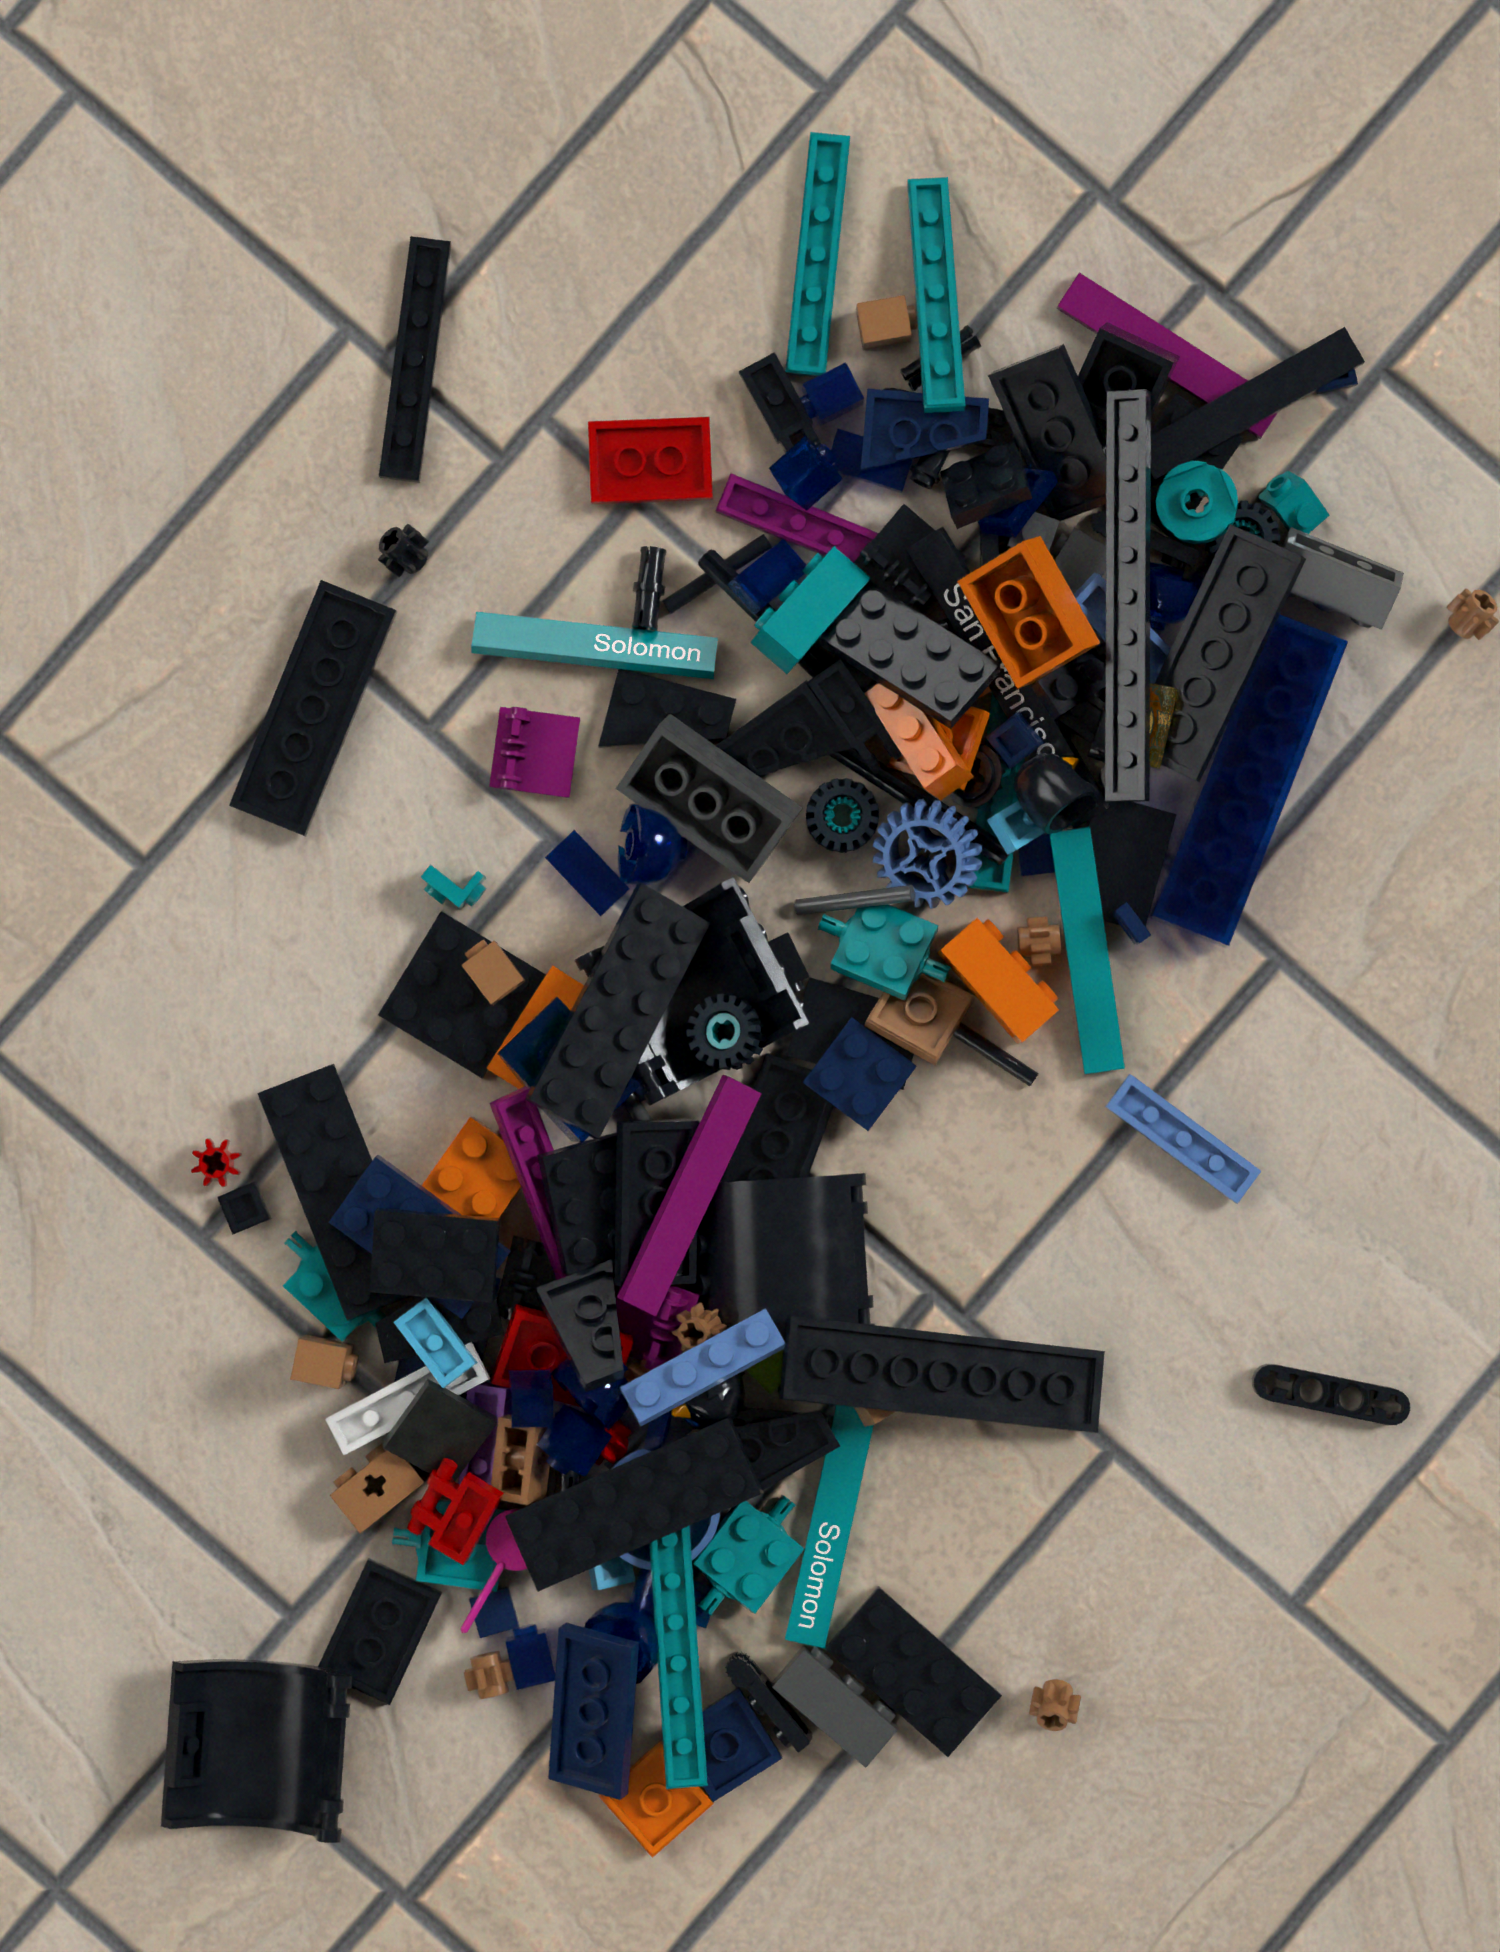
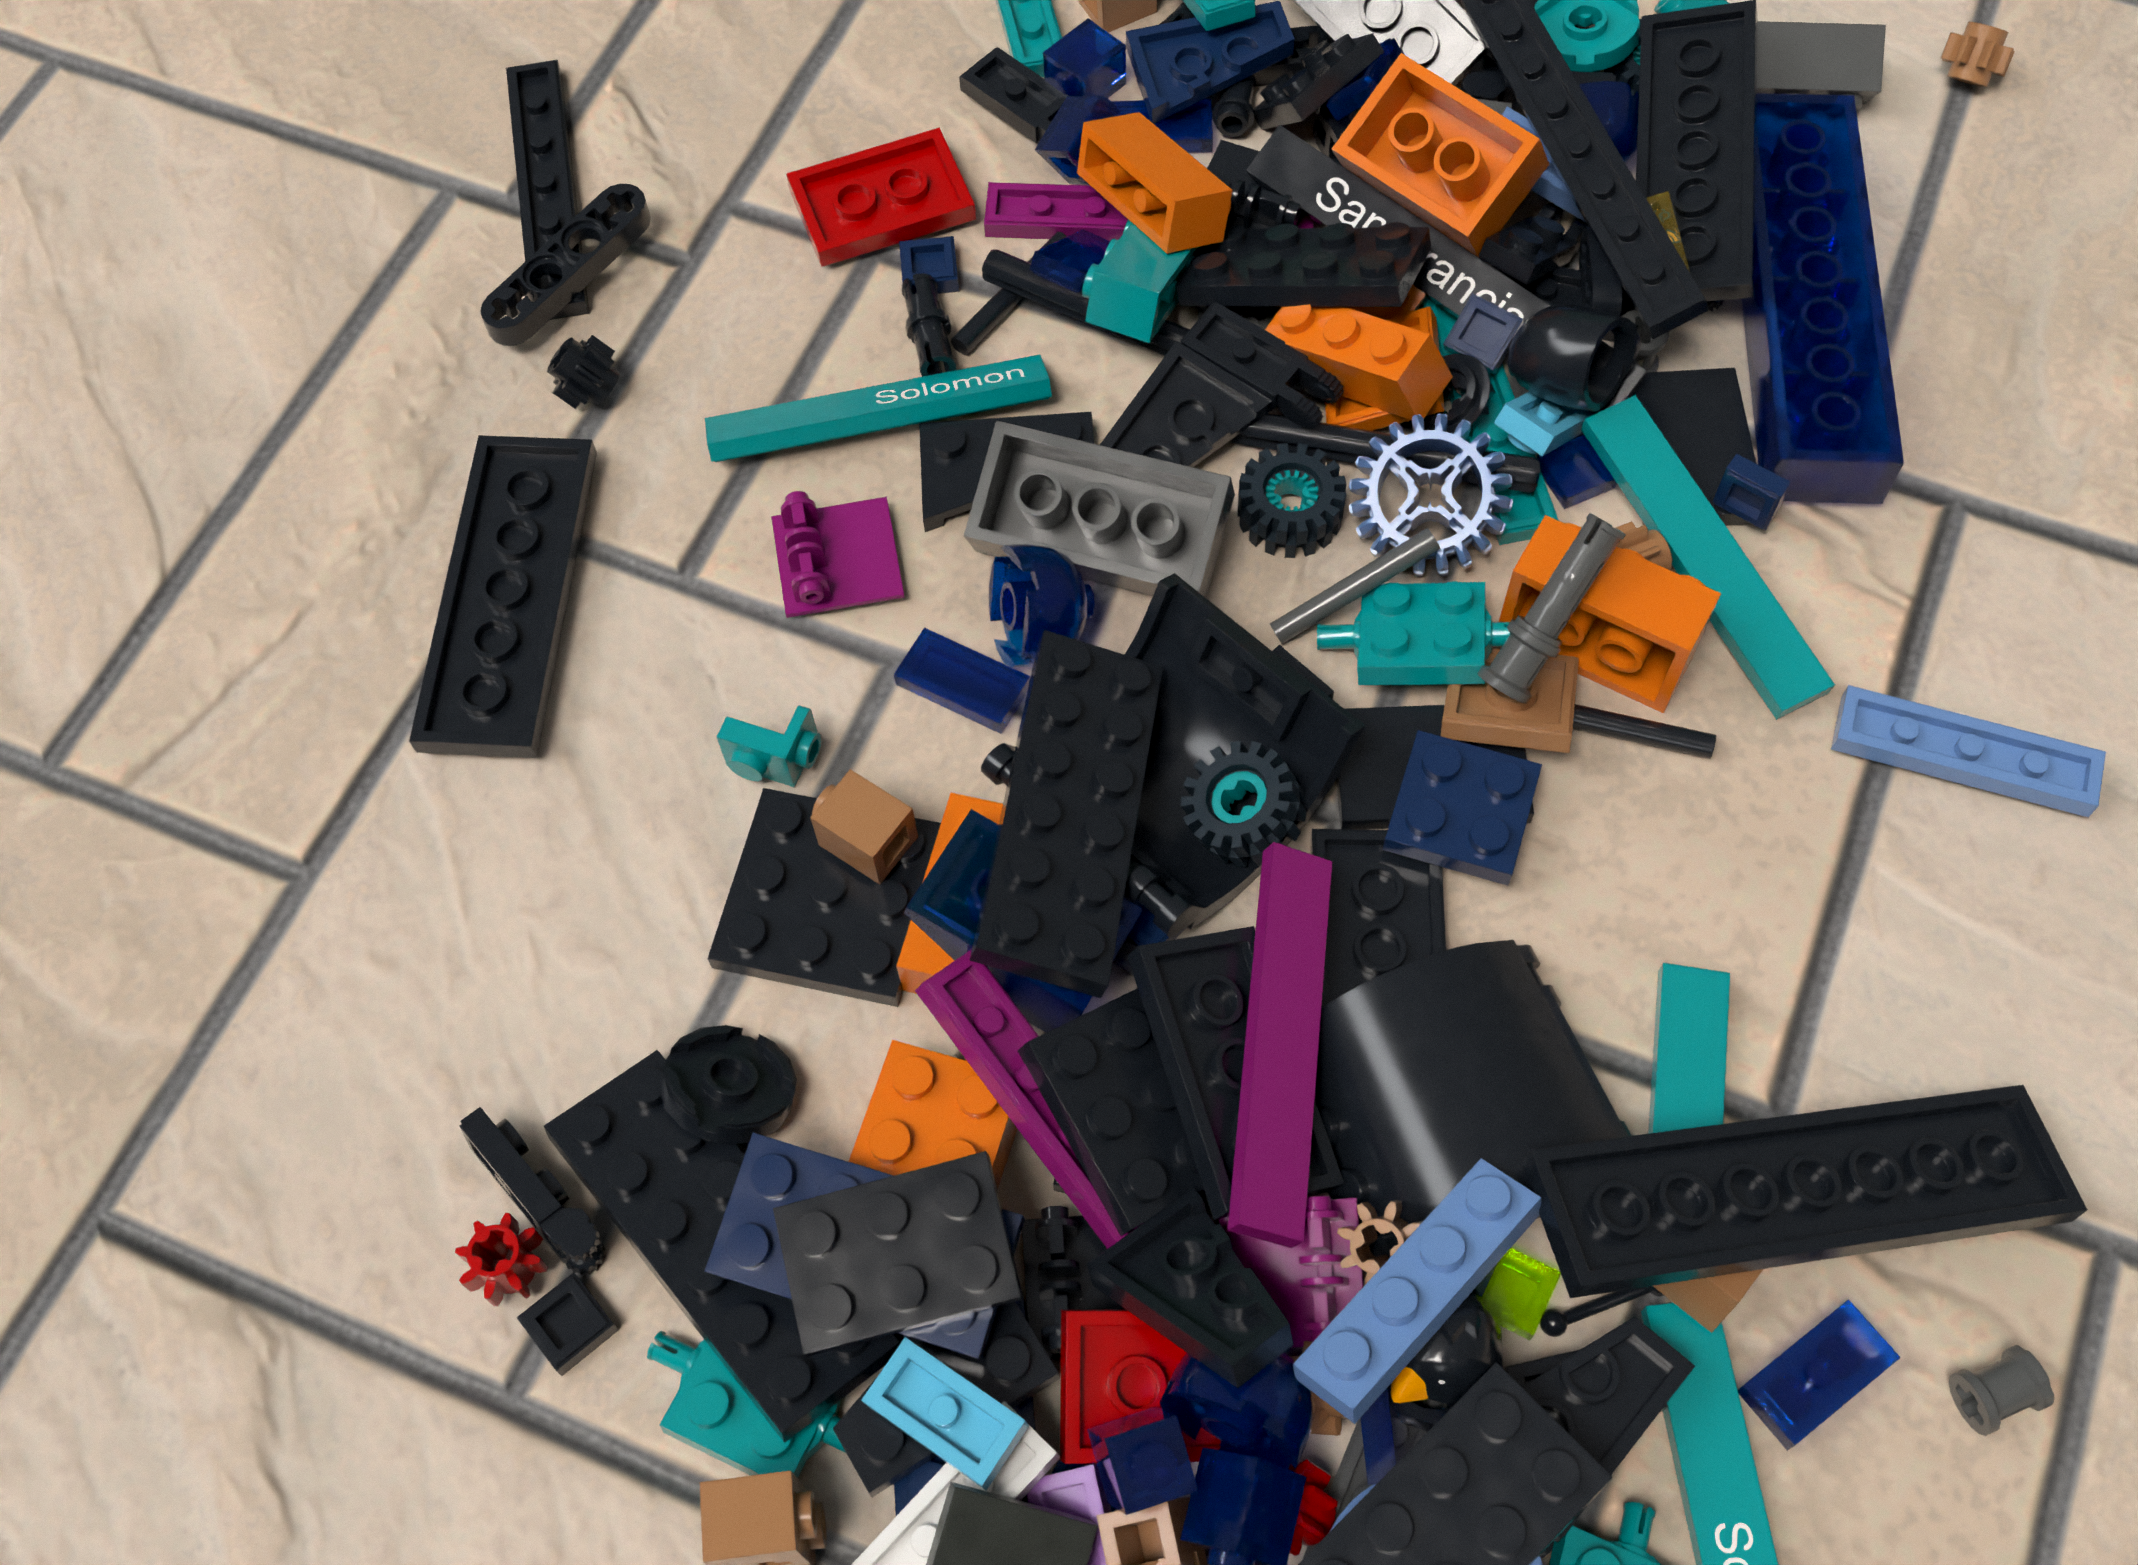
camera: 15 degrees left, 25 degrees down
(243, 1129) = (536, 1195): none -> black hinge
(369, 1102) = (727, 1085): none -> black tile
(409, 446) = (558, 258): none -> black beam
(667, 529) = (930, 257): none -> dark blue tile
(833, 549) = (1154, 182): none -> orange brick
(912, 1466) = (1818, 1374): none -> clear blue plate
(926, 1272) = (1689, 1048): none -> teal tile
(937, 995) = (1536, 635): none -> dark grey pin
(1004, 1506) = (2001, 1390): none -> dark grey bush

